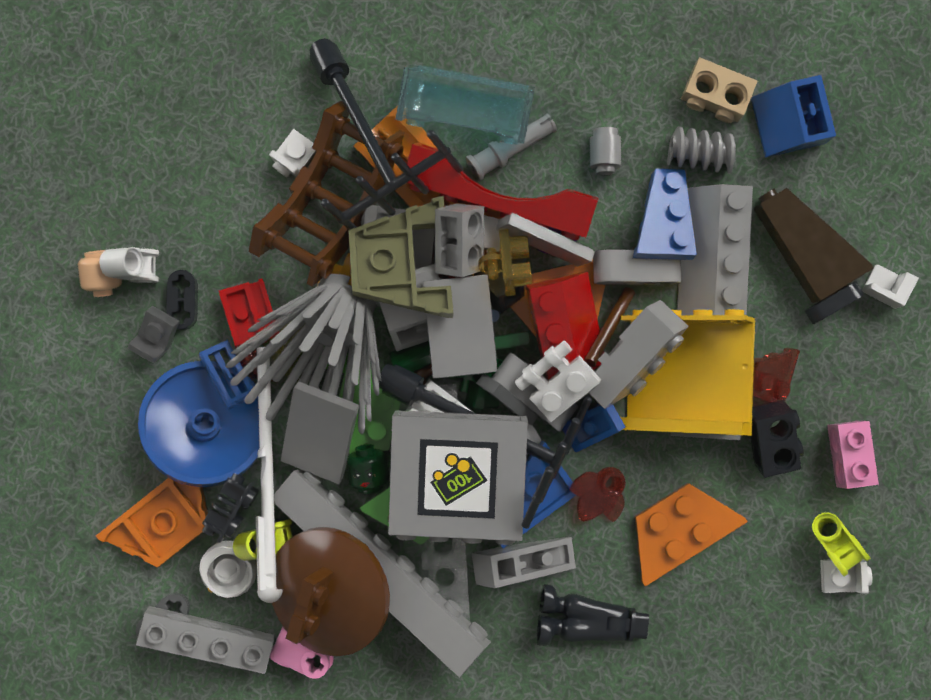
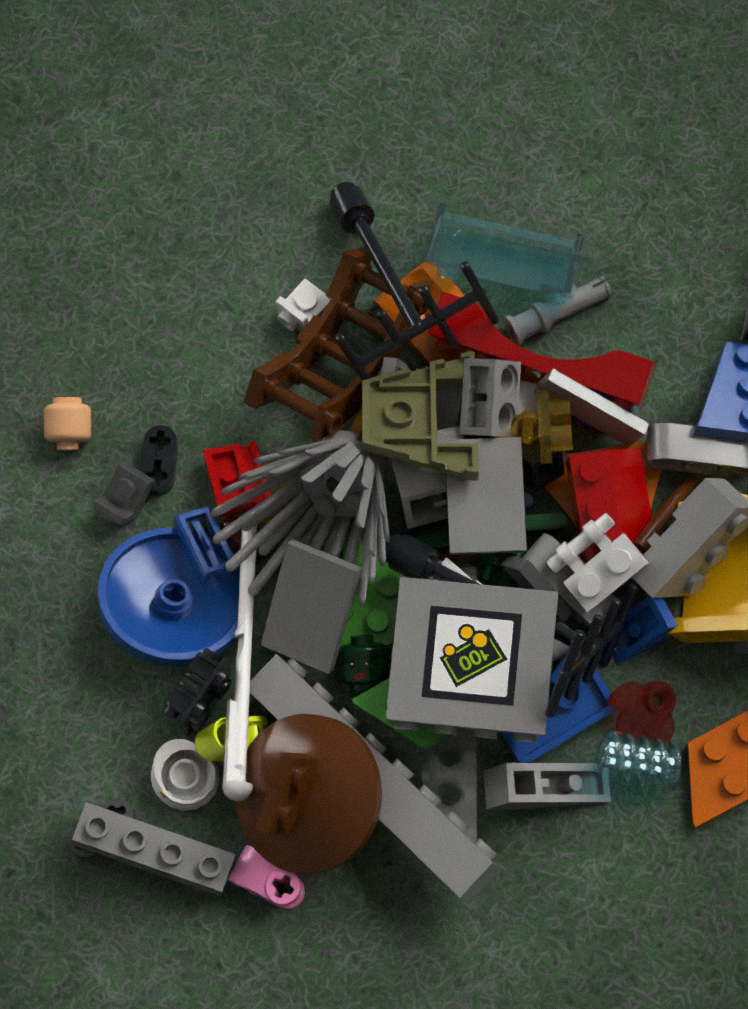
camera: 15 degrees right, 15 degrees down
(130, 264) = (105, 413): white piece -> none
(159, 523) = (109, 711): orange wing -> none
(587, 619) = (622, 861): black piece -> none
(597, 535) = (638, 757): none -> clear light blue piece
(605, 150) = (668, 320): light grey brick -> none

